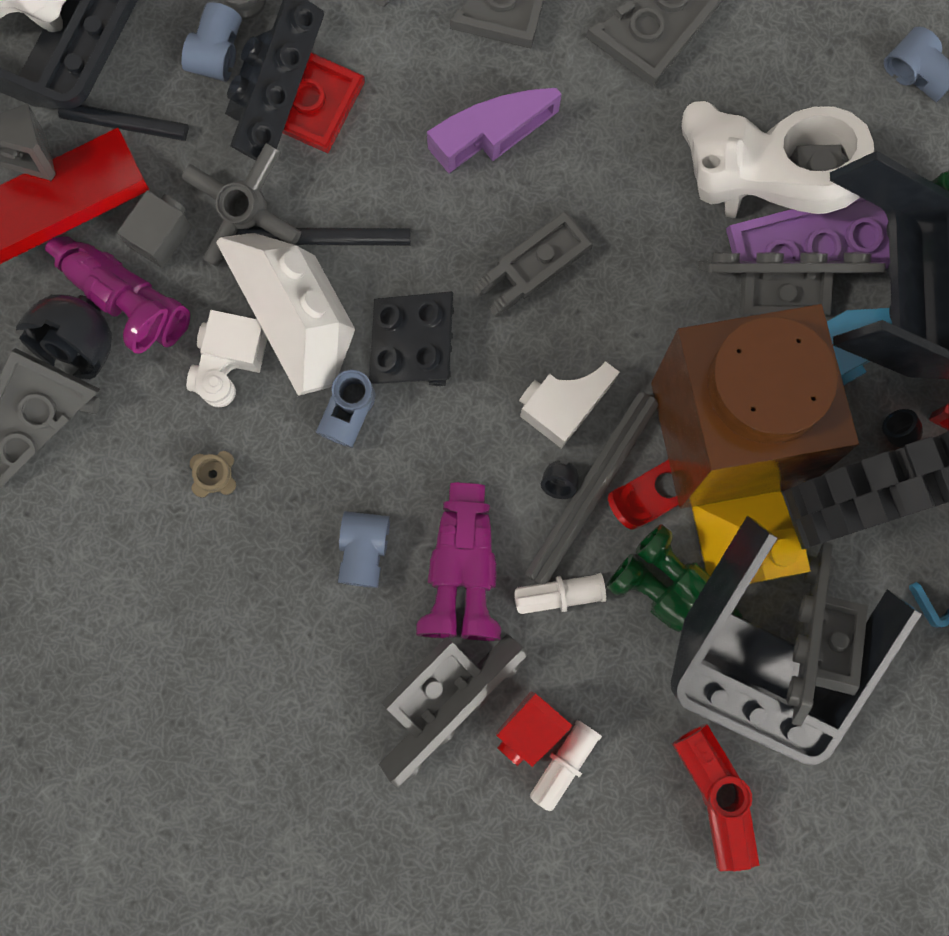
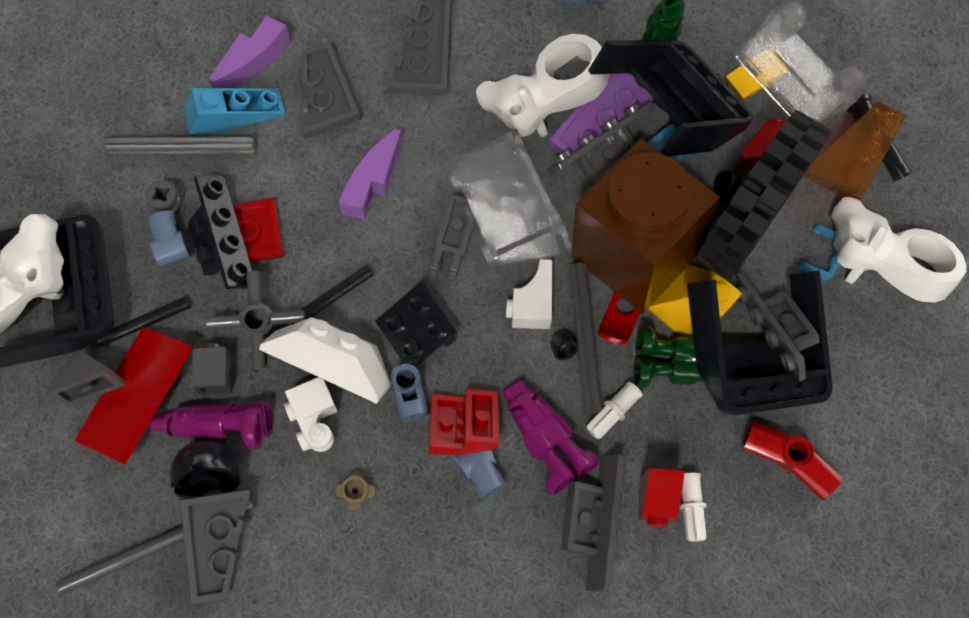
camera: 35 degrees left, 10 degrees down
(380, 486) = (464, 423): none -> red slope
(621, 270) = (509, 202): none -> clear windscreen

